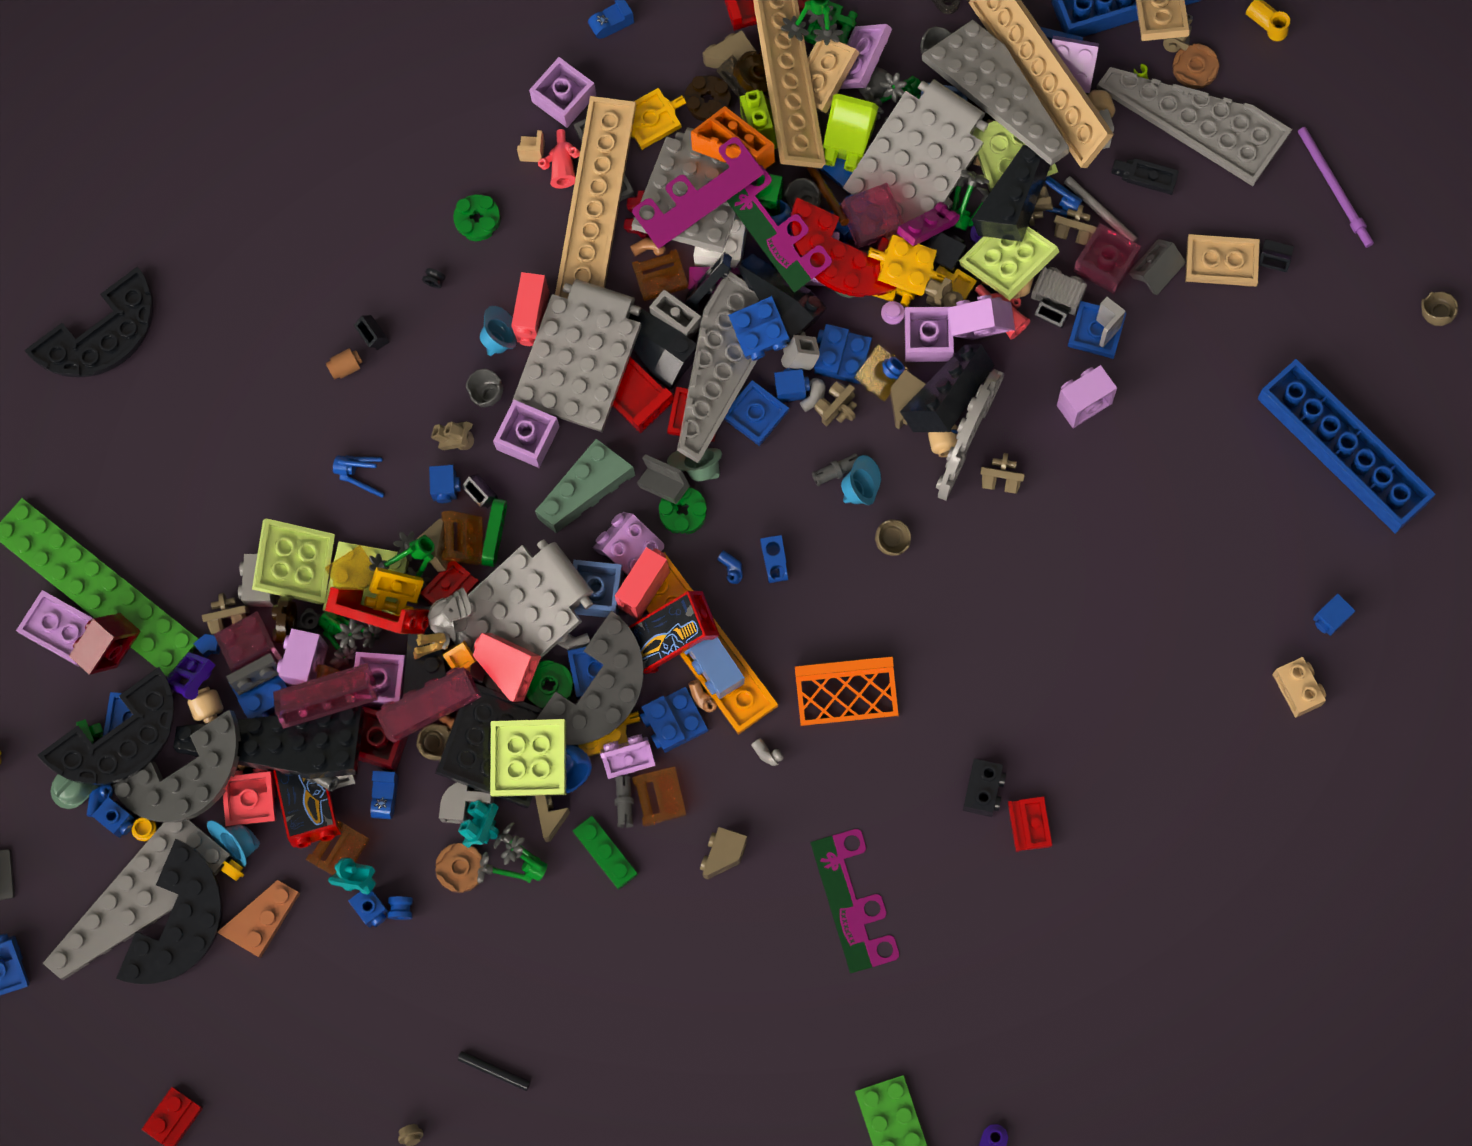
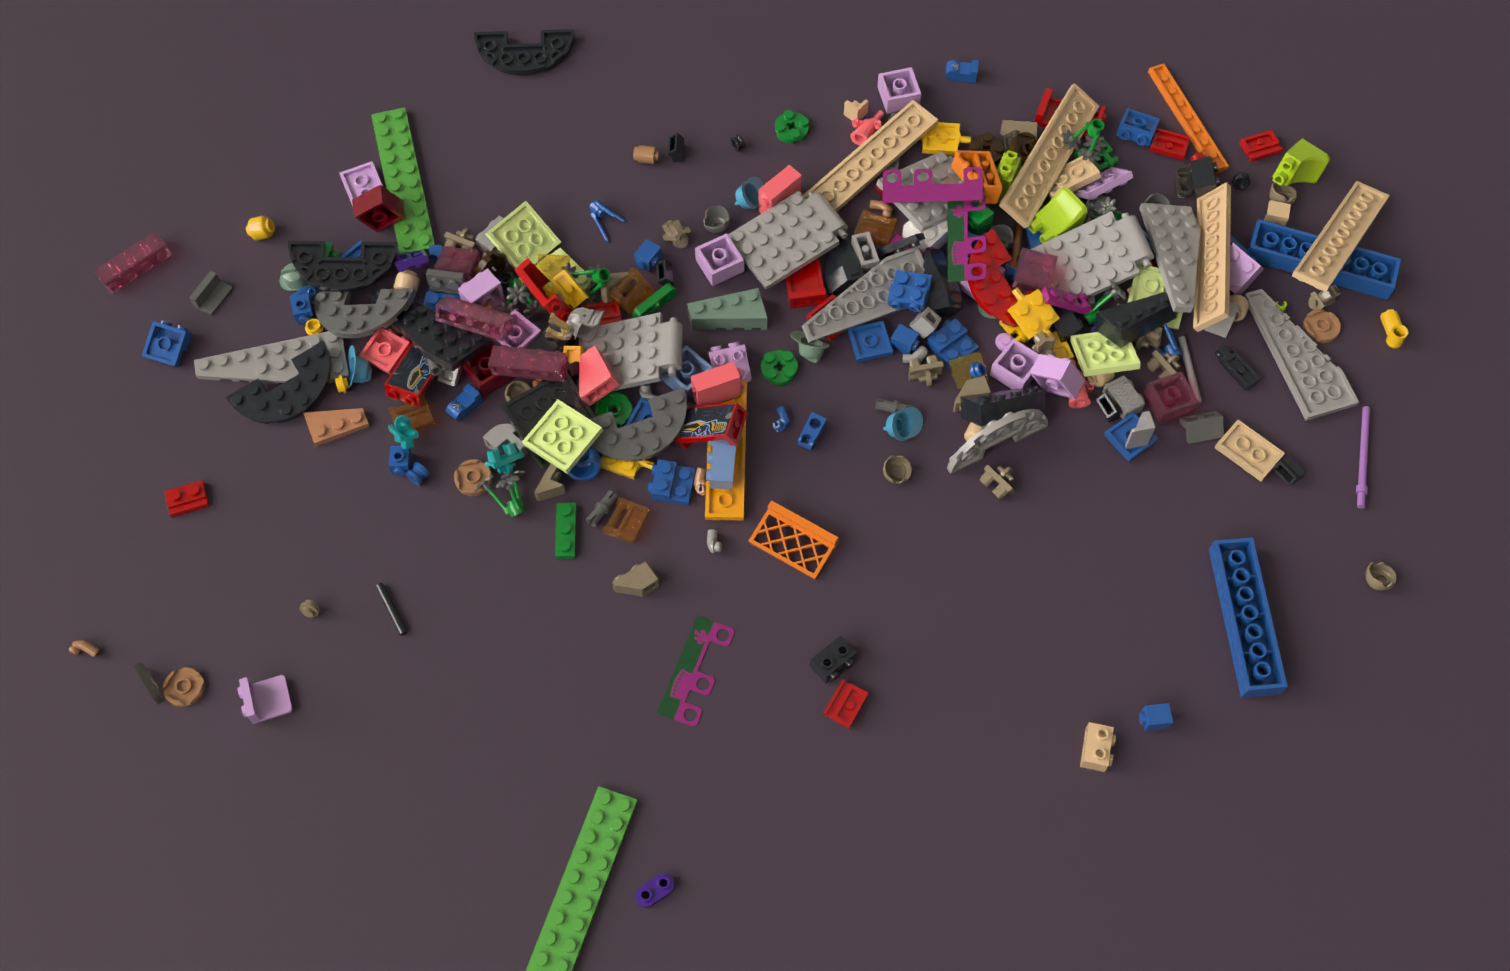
camera: 30 degrees right, 10 degrees down
(627, 757) = (625, 481): lavender bracket -> none
(663, 480) = (780, 340): dark grey panel -> none
(1086, 395) = (1091, 468): lavender brick -> none

